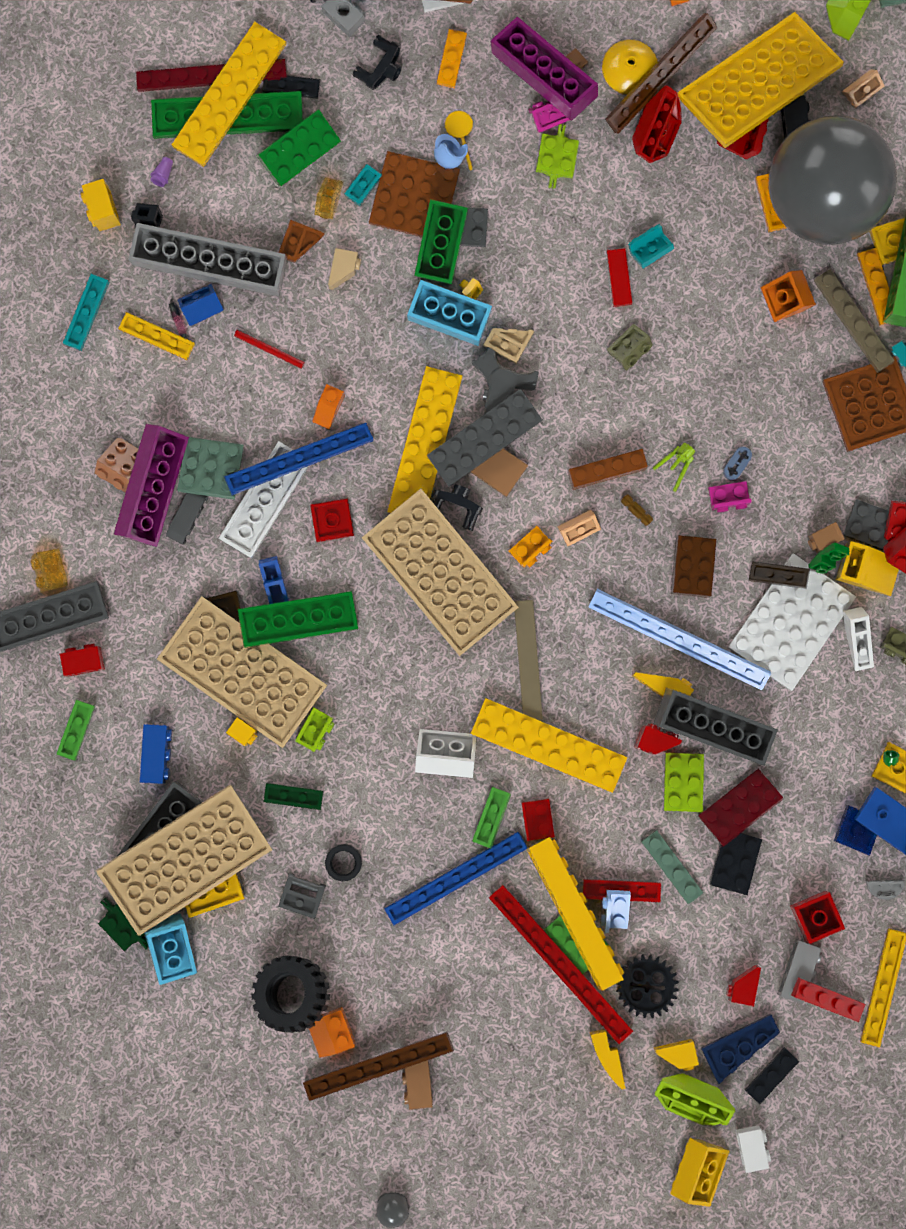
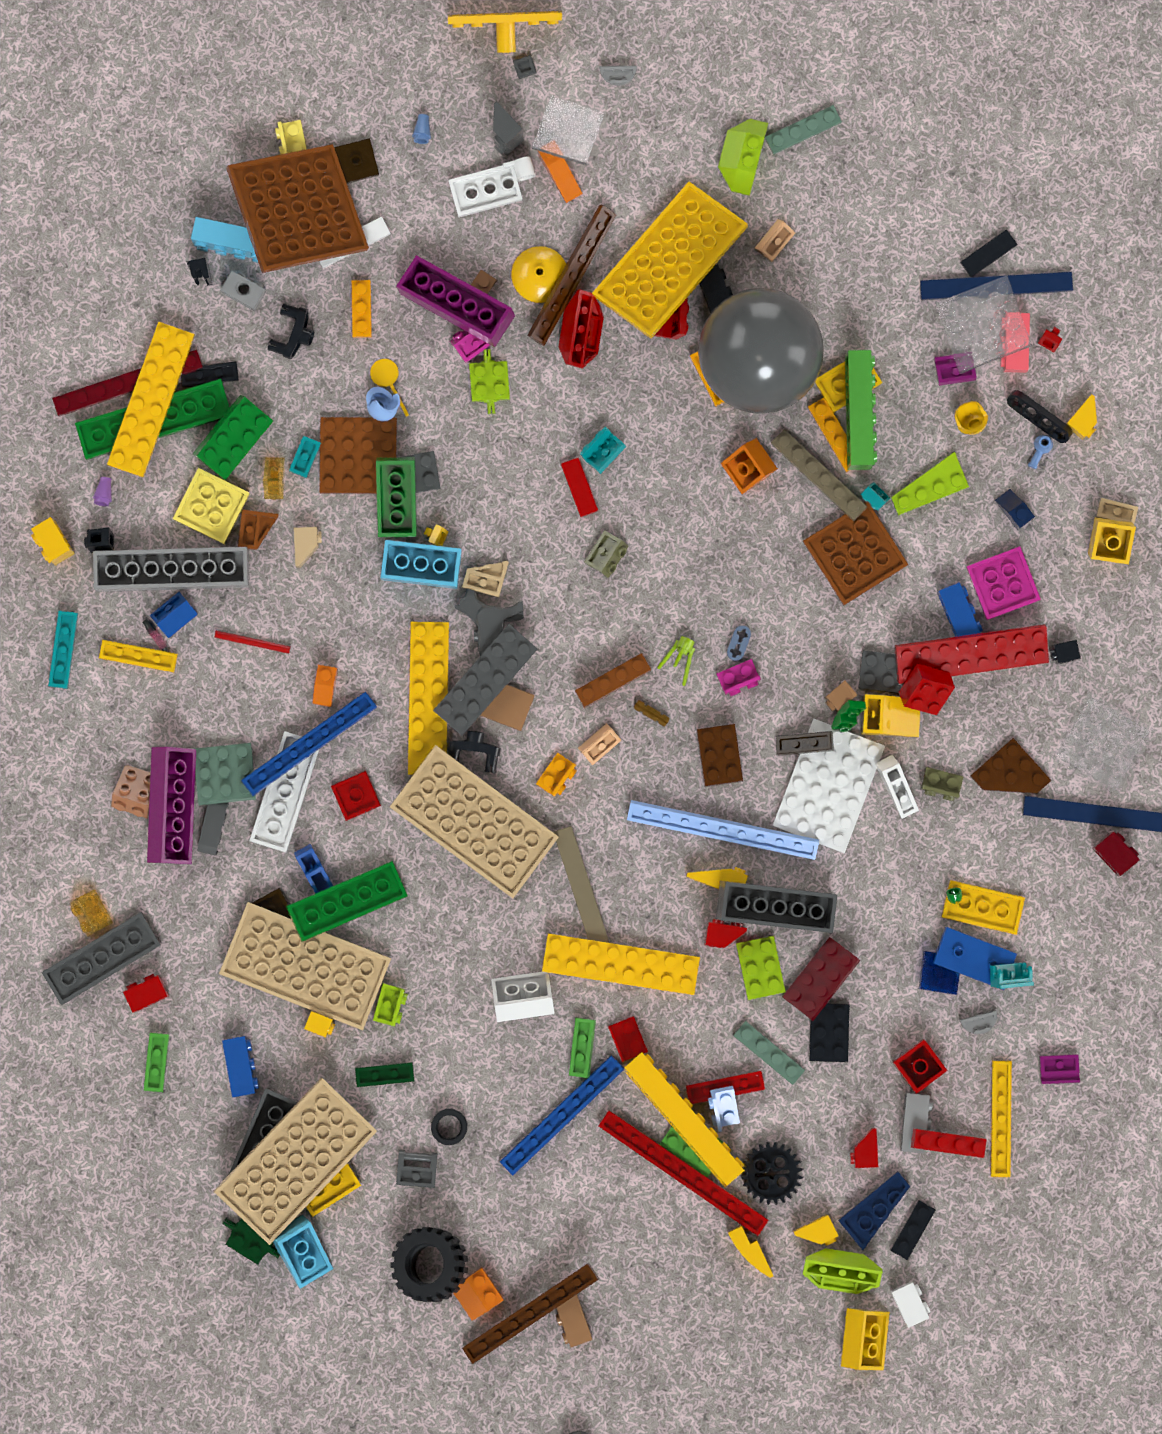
camera: 15 degrees left, 0 degrees up
(262, 210) = (211, 506): none -> light yellow plate

